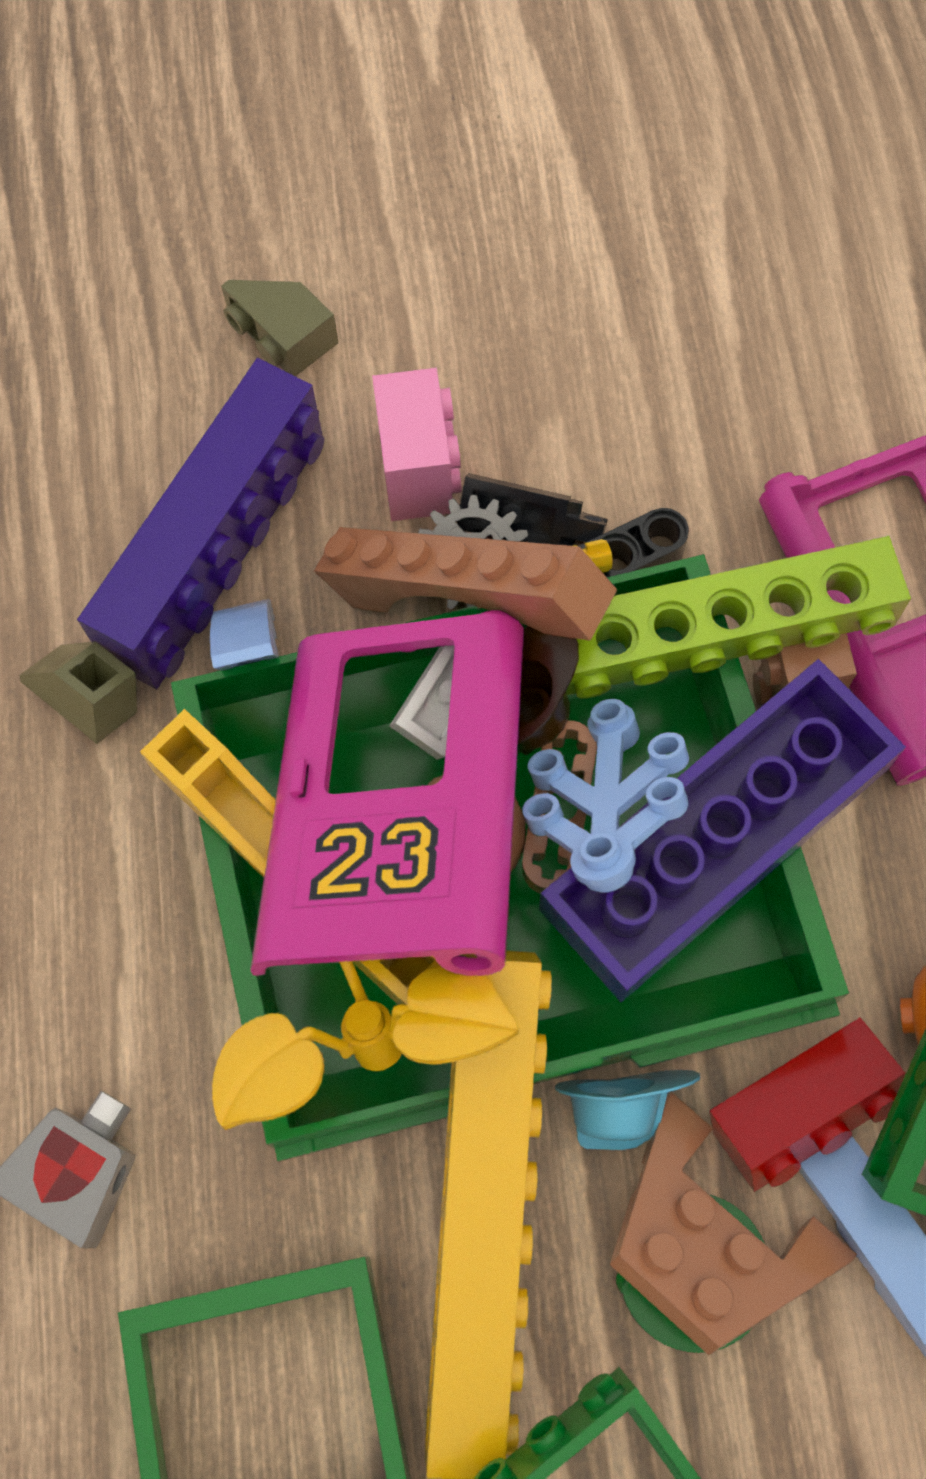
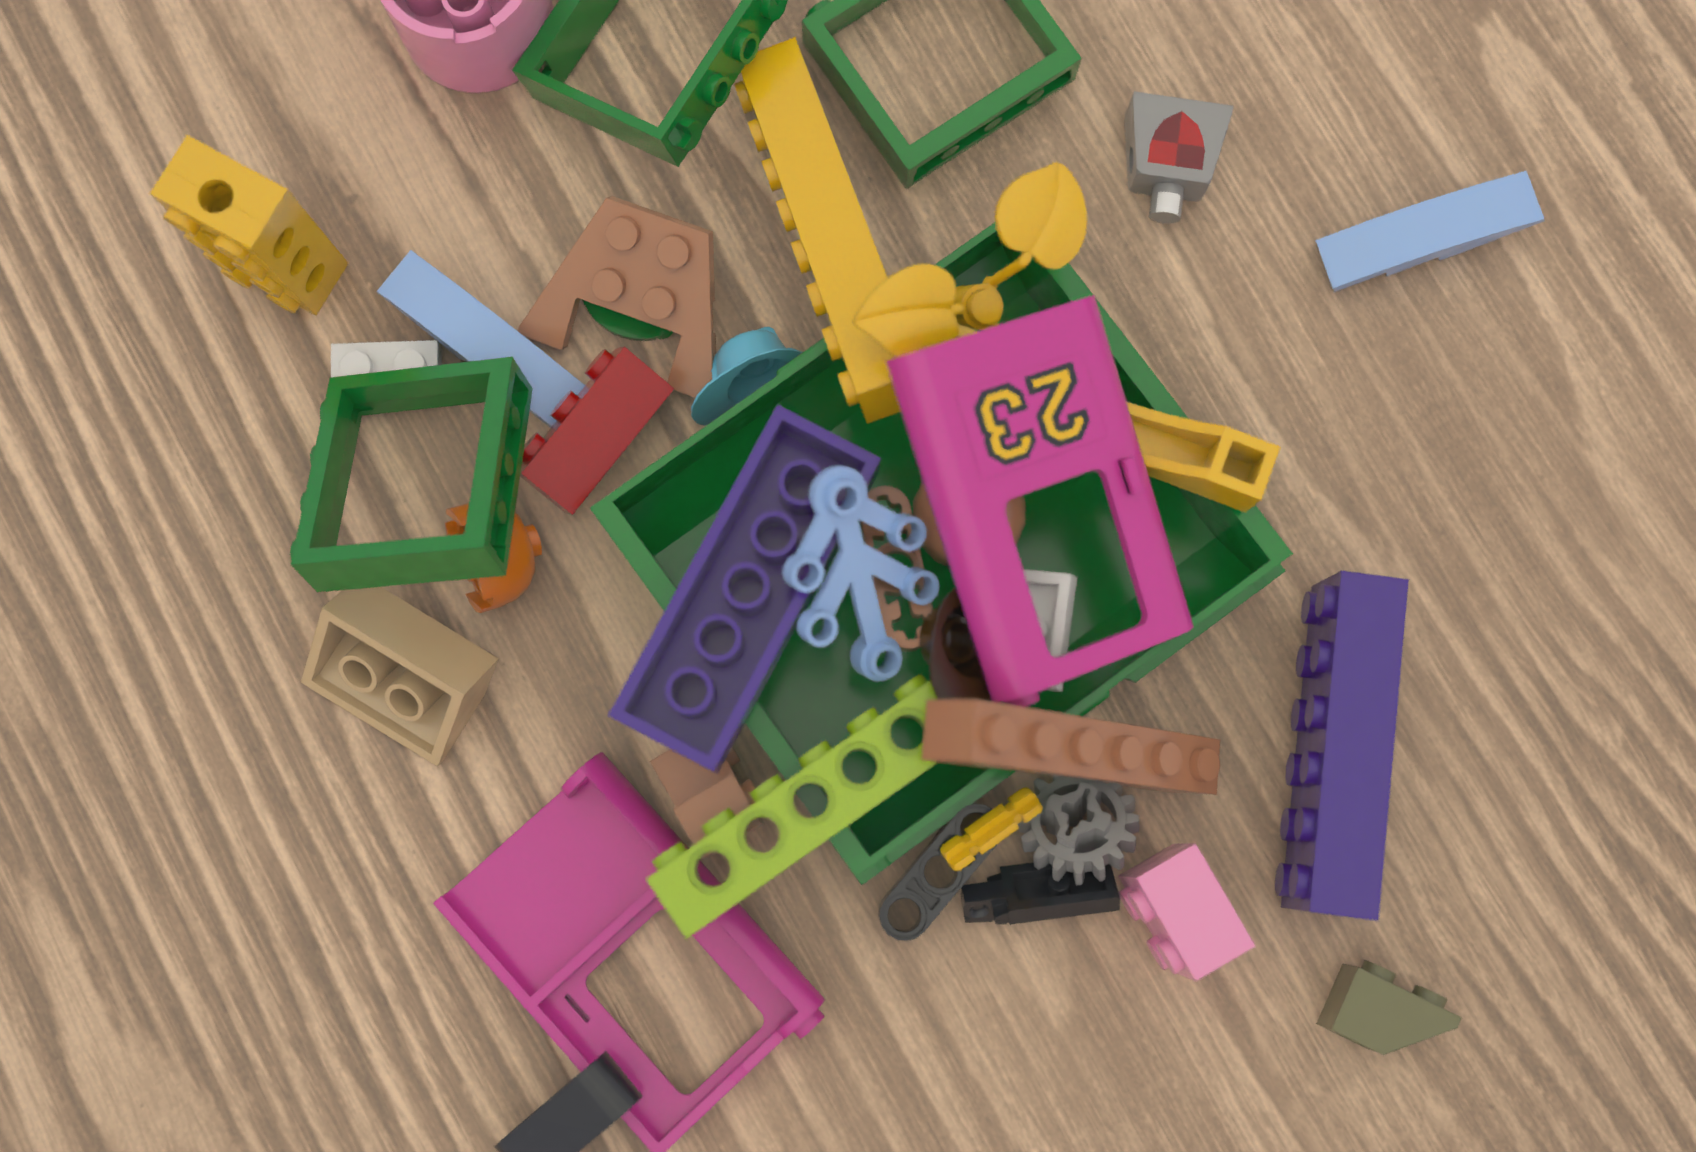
camera: 150 degrees right, 10 degrees up
(85, 687) = (1377, 547): olive slope -> none
(243, 635) = (1252, 628): light blue slope -> none

